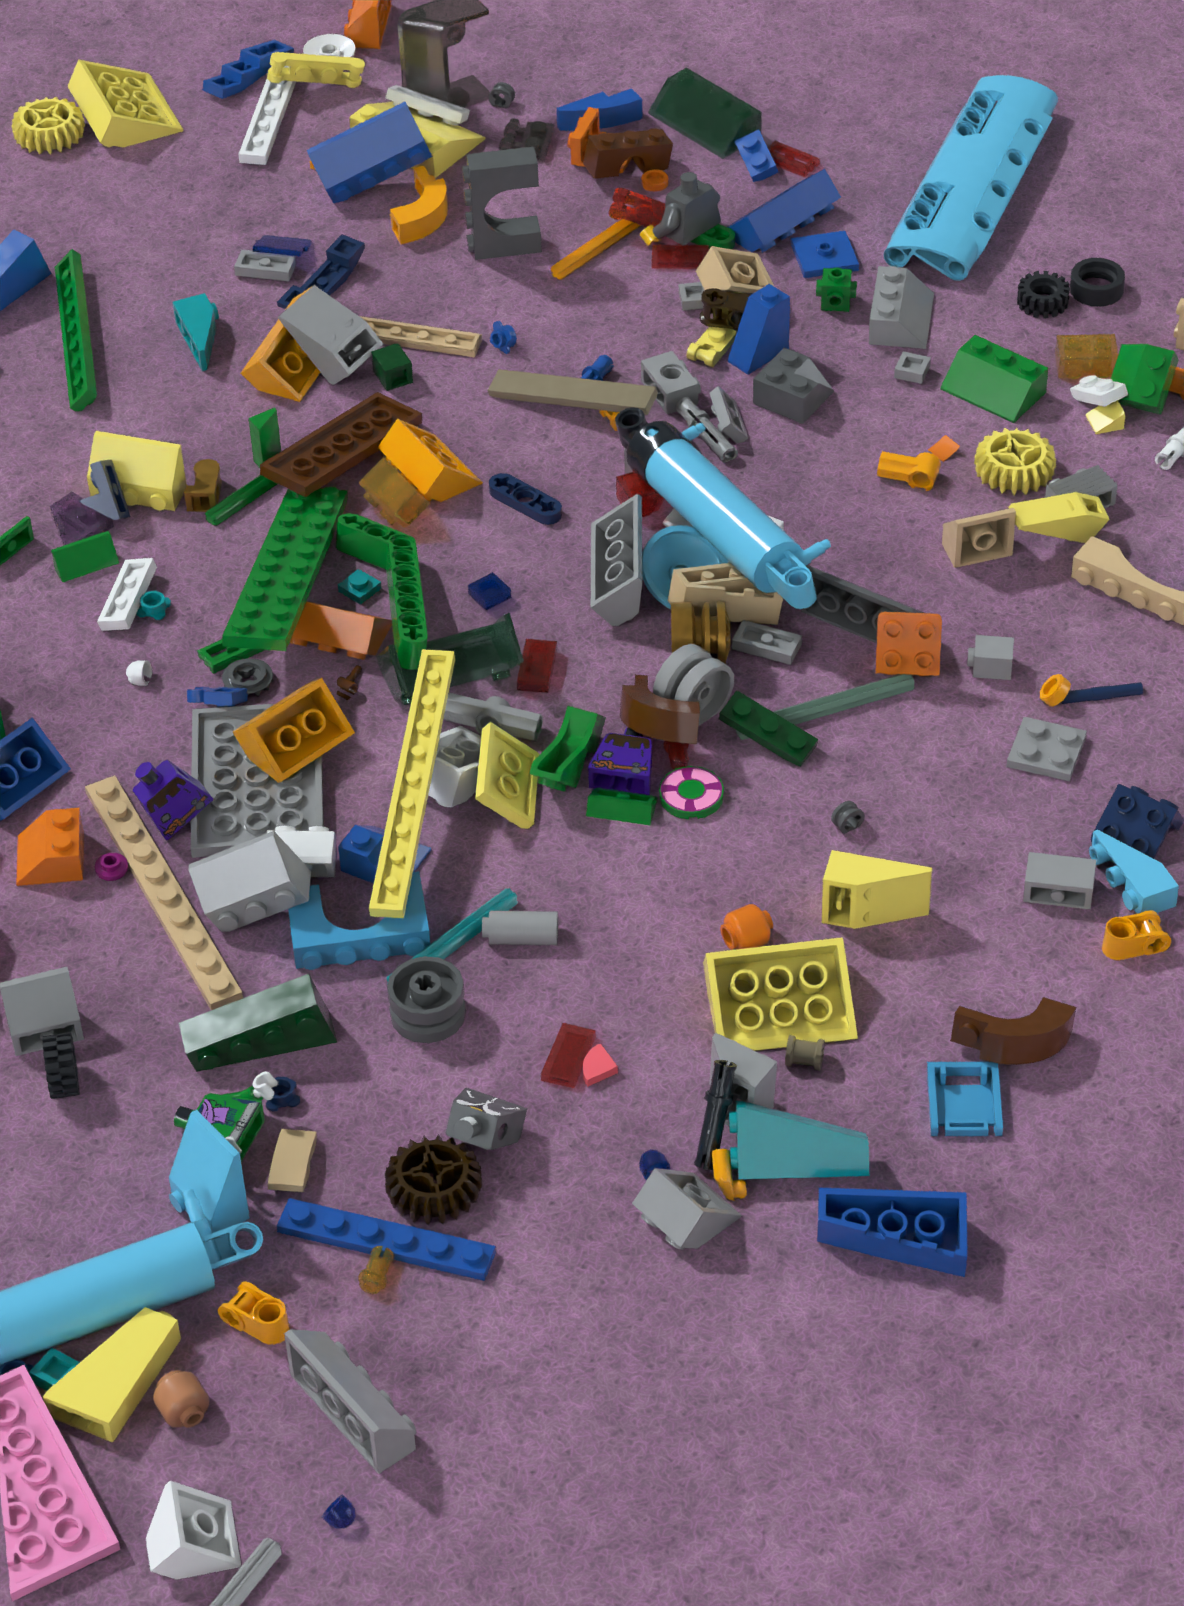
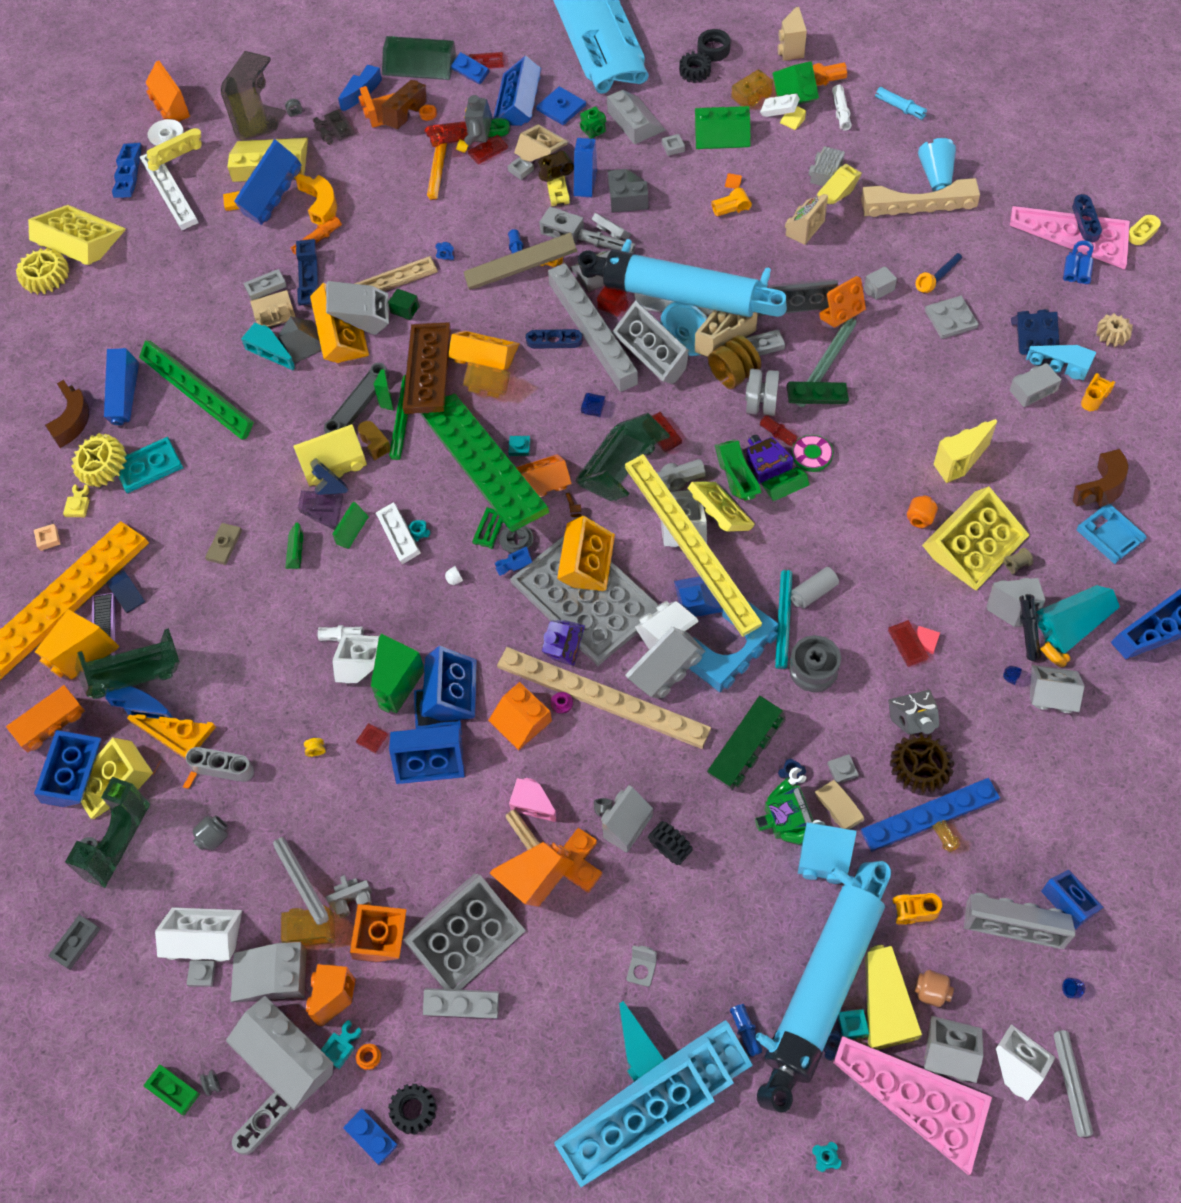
camera: 35 degrees left, 15 degrees up
(130, 1468) = (954, 1049): none -> light grey slope
(231, 438) = (356, 400): none -> dark grey piece
(238, 339) = (300, 338): none -> dark grey slope
(246, 296) = (272, 309): none -> tan hinge
(282, 245) = (262, 267): clear blue piece -> none
(340, 1129) = (842, 769): none -> light grey plate
(390, 243) = (322, 231): none -> orange pin
(399, 557) = (550, 429): green beam -> none
(428, 105) = (260, 136): white plate -> none
(445, 1424) = (1072, 897): none -> blue slope
(486, 177) = (368, 161): dark grey arch -> none
(578, 509) = (593, 328): none -> light grey brick
(658, 716) = (764, 422): reddish brown arch -> none
(847, 816) = (903, 416): dark grey bush -> none
(1015, 461) = (782, 166): light yellow gear -> none

